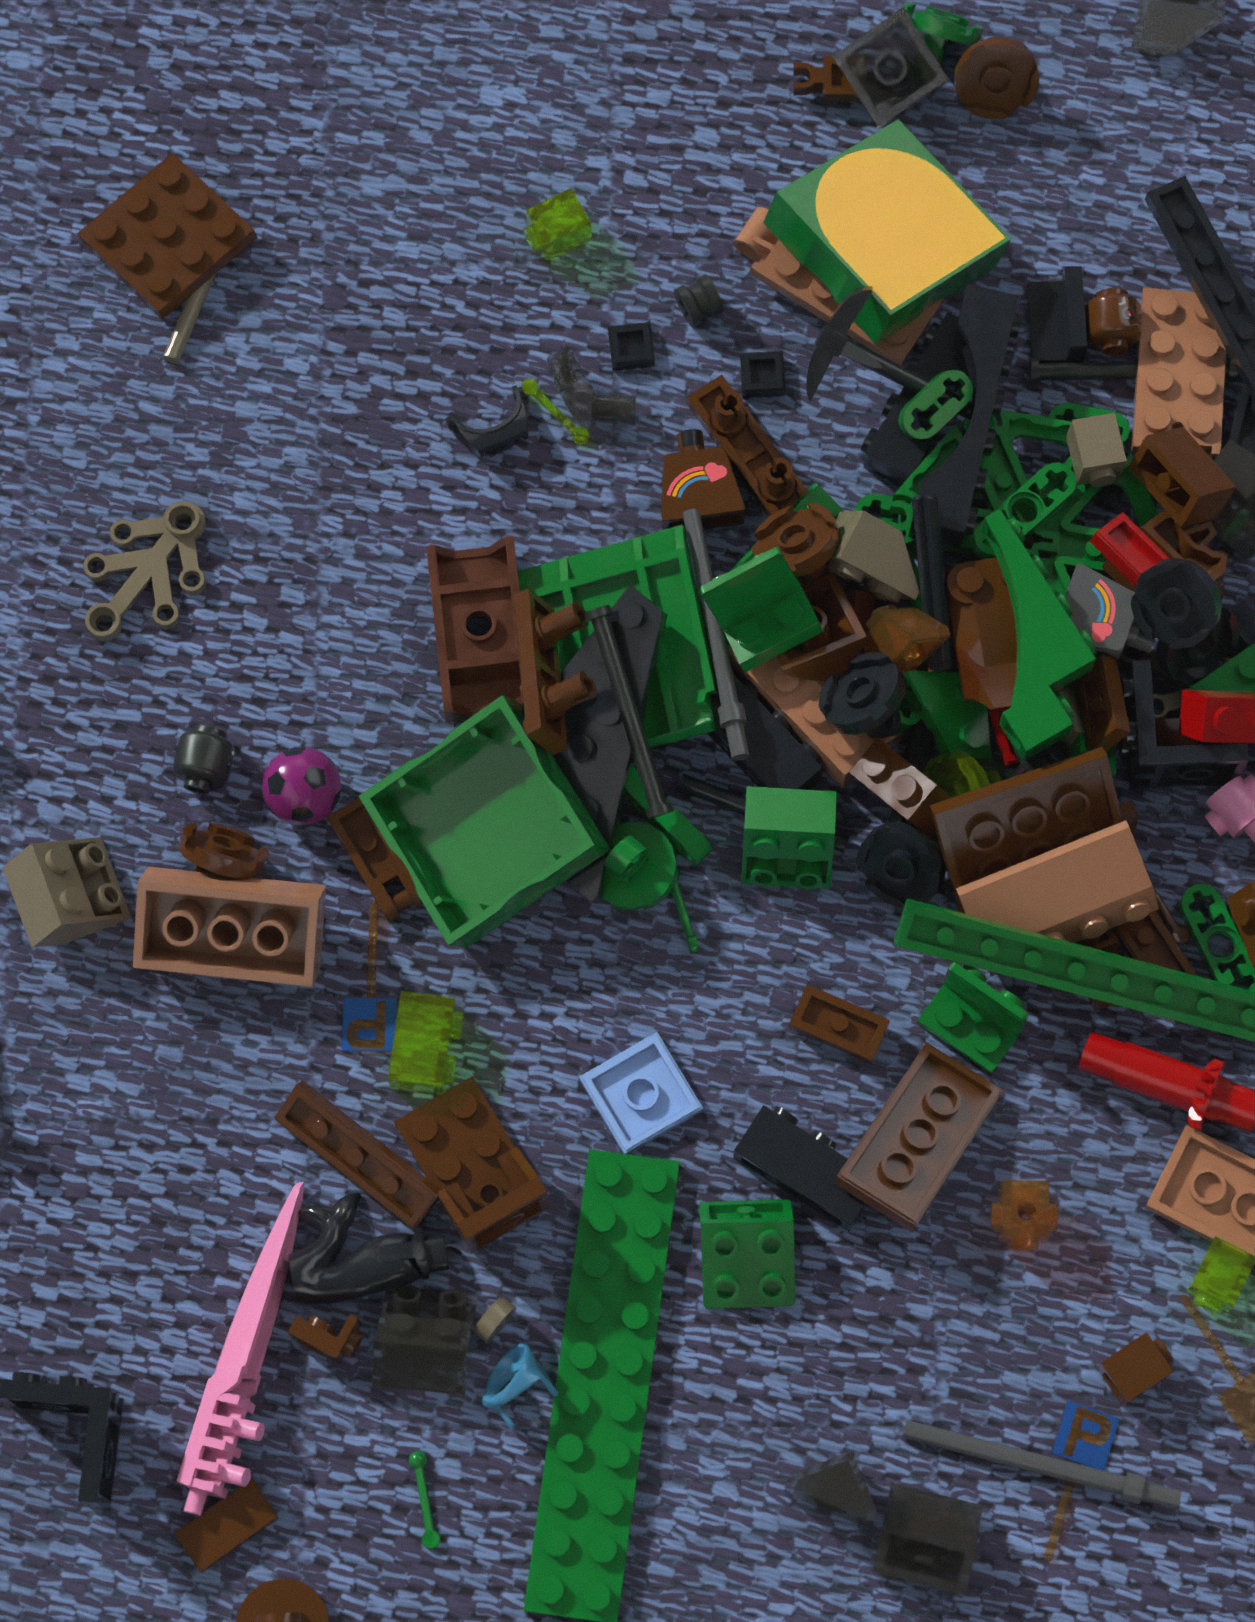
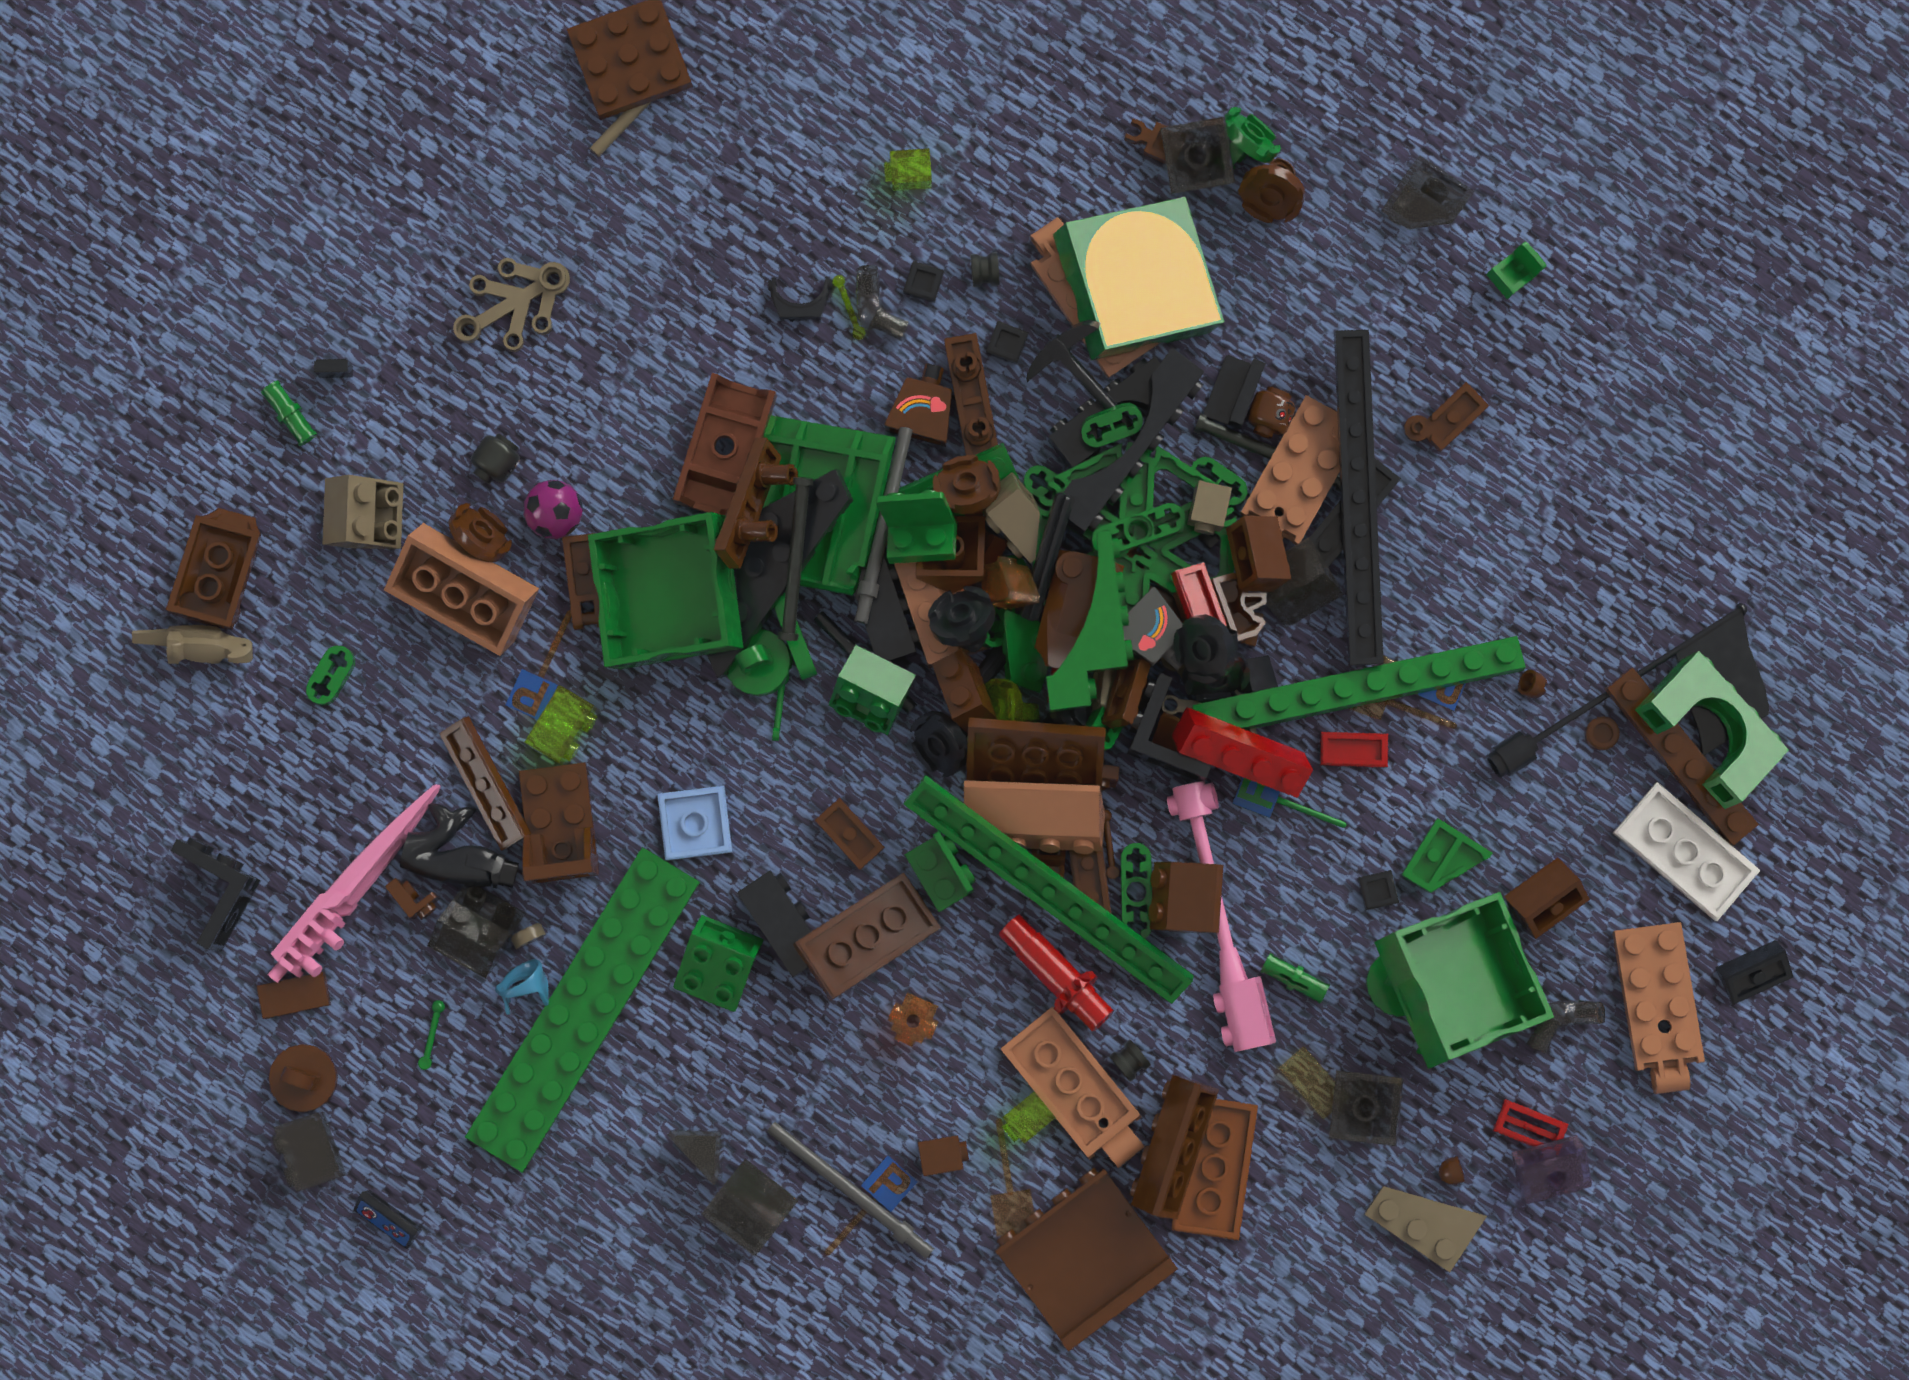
camera: 20 degrees right, 10 degrees up
(97, 1102) = (324, 670): none -> green beam

